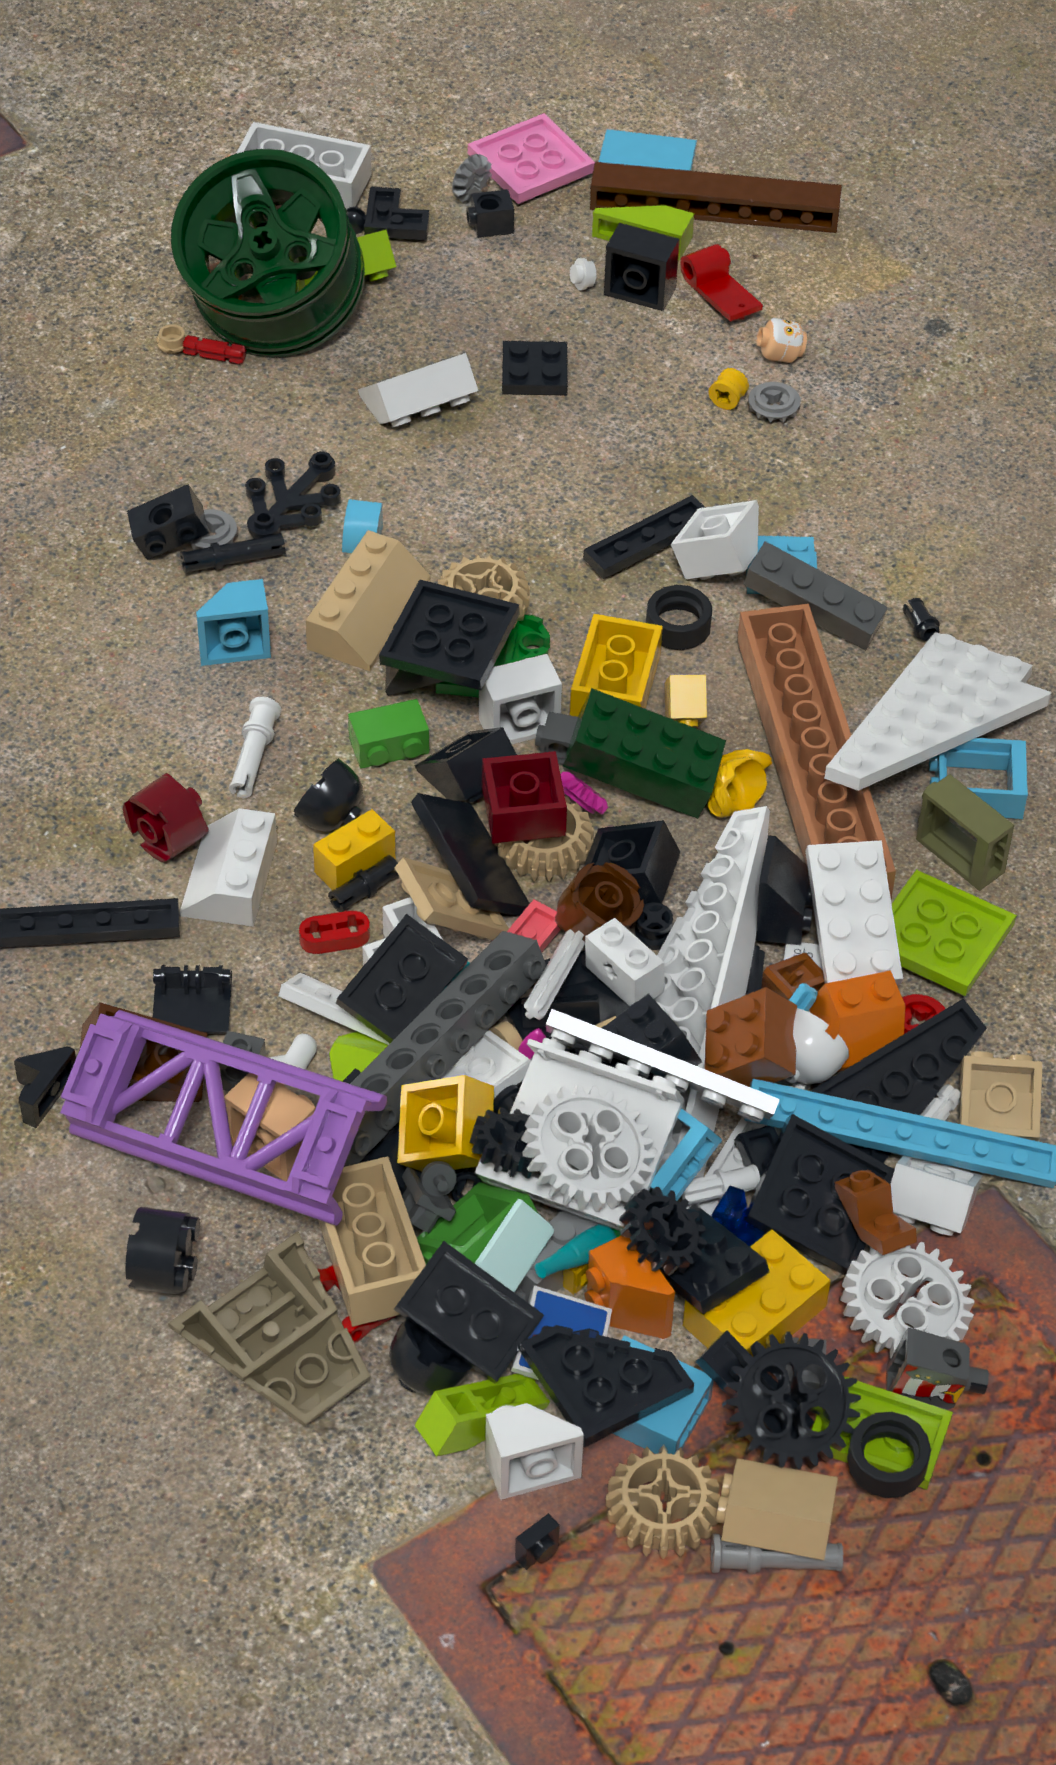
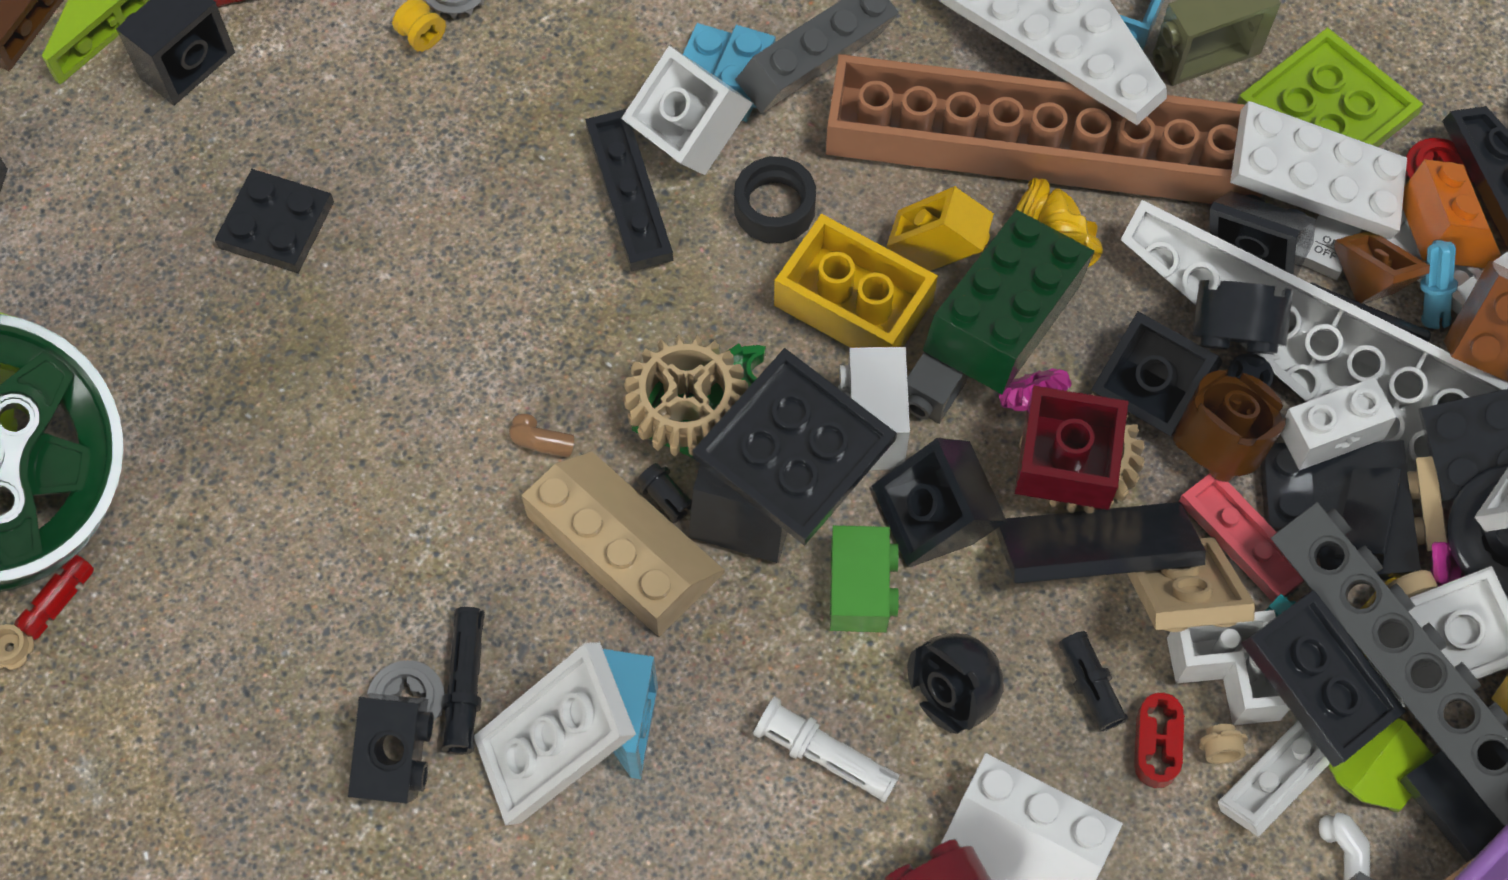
camera: 70 degrees left, 15 degrees up
(200, 583) = (554, 733): none -> white plate
(269, 522) = (388, 580): black plant -> none
(343, 966) = (1223, 744): none -> tan plate
(353, 848) = (1050, 676): yellow brick -> none
(360, 518) = (485, 505): medium azure brick -> none
(420, 391) = (260, 362): white slope -> none
(424, 544) = (541, 440): none -> medium nougat arm
(554, 975) = (1350, 506): white axle -> none
(583, 273) = (138, 112): white plate -> none
(683, 877) = (1242, 315): none -> black brick

